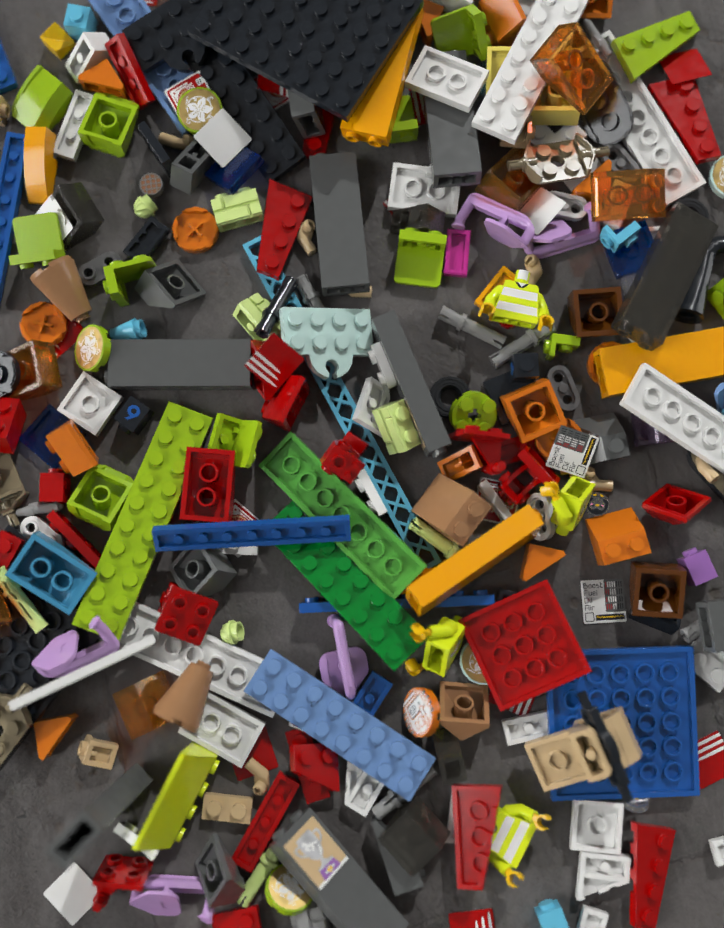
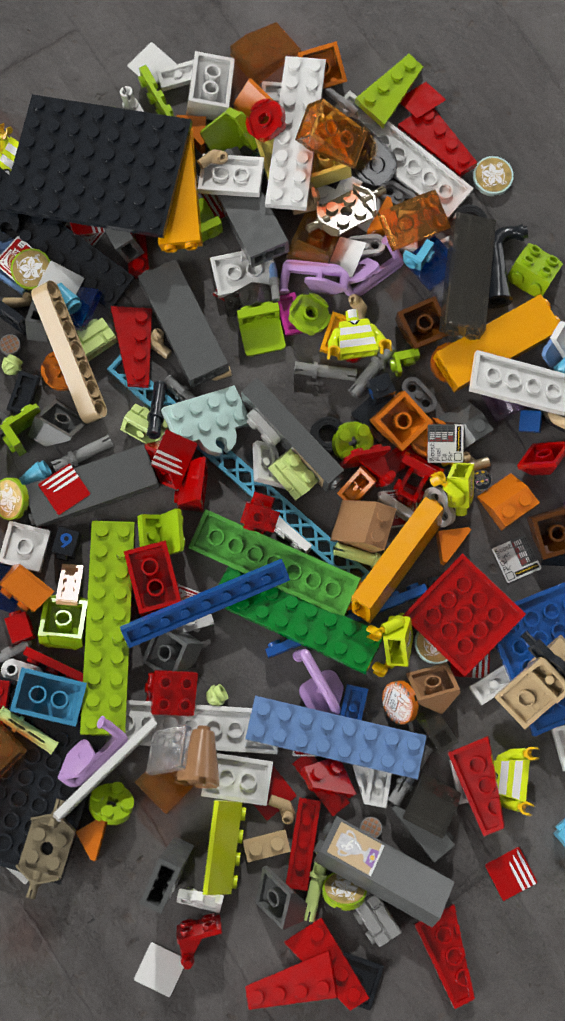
camera: 30 degrees left, 5 degrees down
(81, 692) = (111, 792): none -> lime plate
(97, 752) = (138, 839): tan bracket -> none
(121, 460) = (69, 584): none -> plate
(150, 358) = (64, 489): none -> red sticker
(157, 676) = (169, 750): none -> clear tile
(167, 902) = (239, 939): lavender piece -> none
(181, 327) = (83, 453): none -> light grey pin
(206, 212) = (69, 352): none -> tan beam
(224, 155) = (71, 300): none -> medium azure cone
(343, 829) = (371, 826): none -> tile
(434, 51) = (214, 157): none -> tan arm
(451, 212) = (274, 282): none -> light grey piece
(469, 268) = (305, 323): none -> lime plate
(511, 39) = (275, 124): none -> red plate
(673, 459) = (530, 421): none -> blue tile

